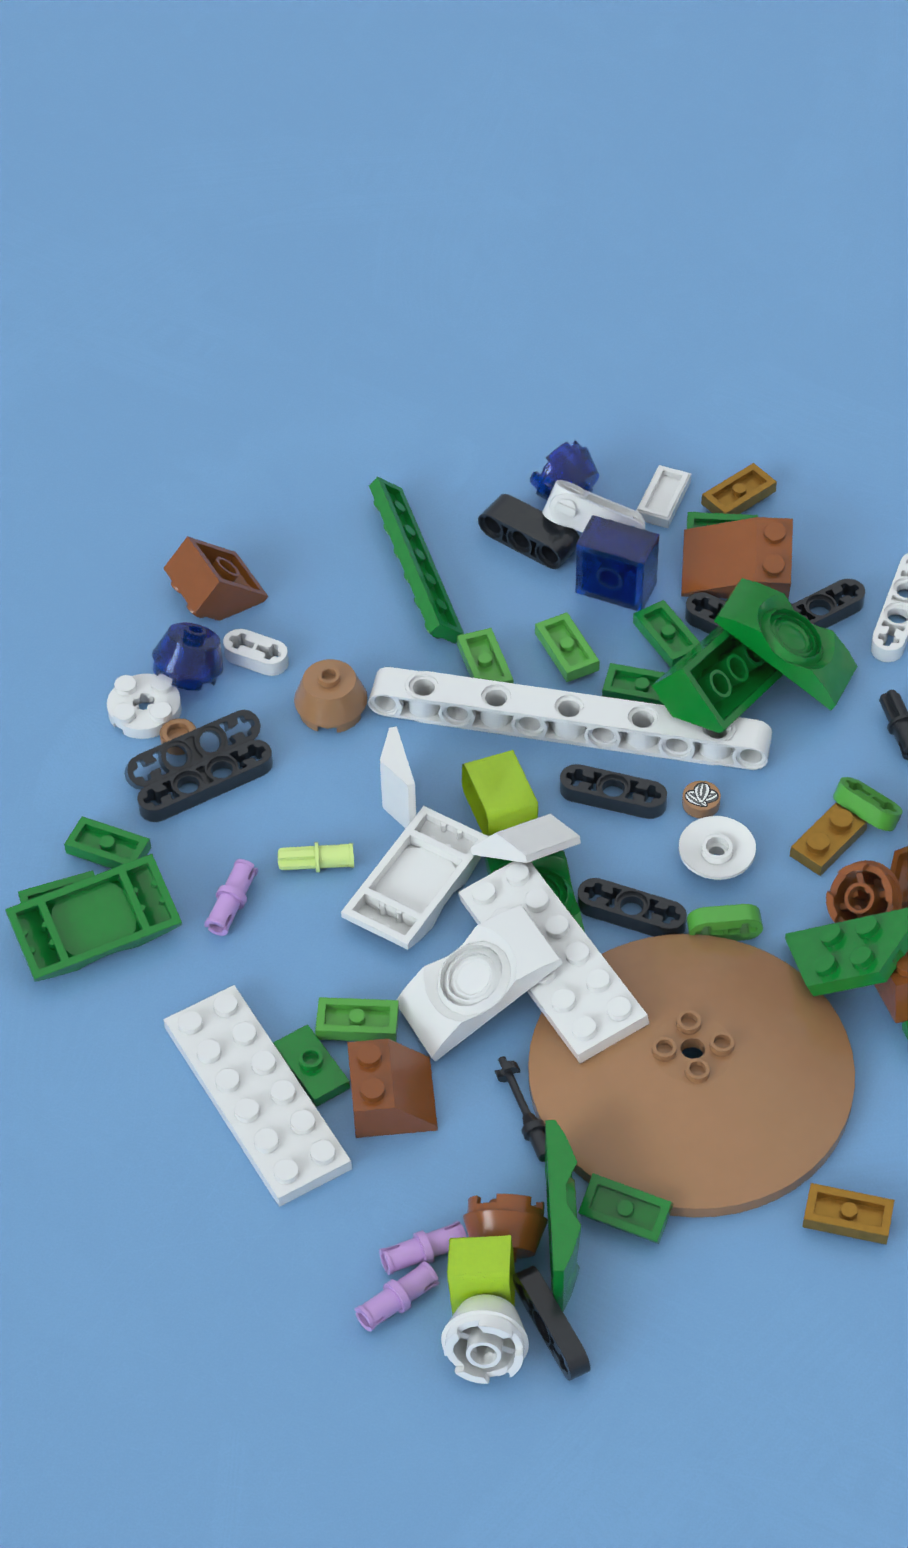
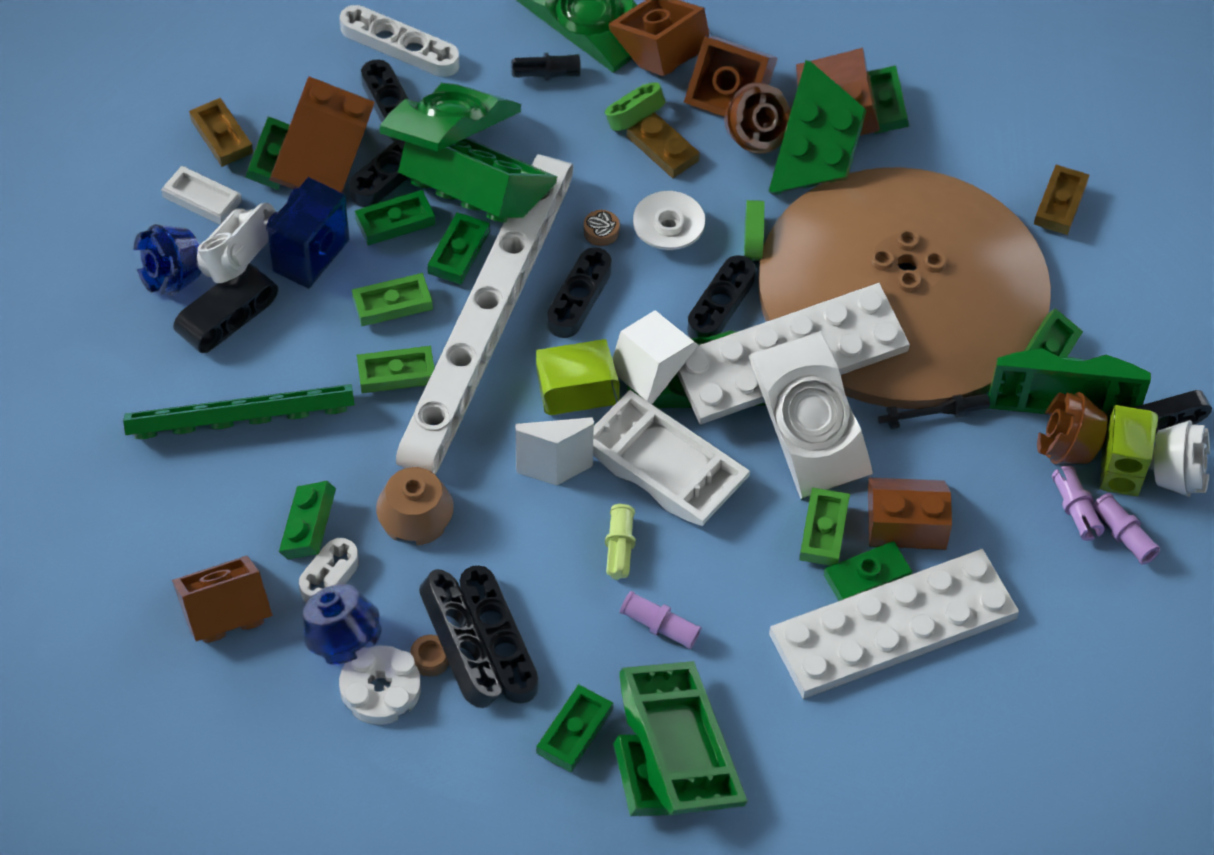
camera: 85 degrees left, 5 degrees up
(319, 624) = (307, 520): none -> green plate

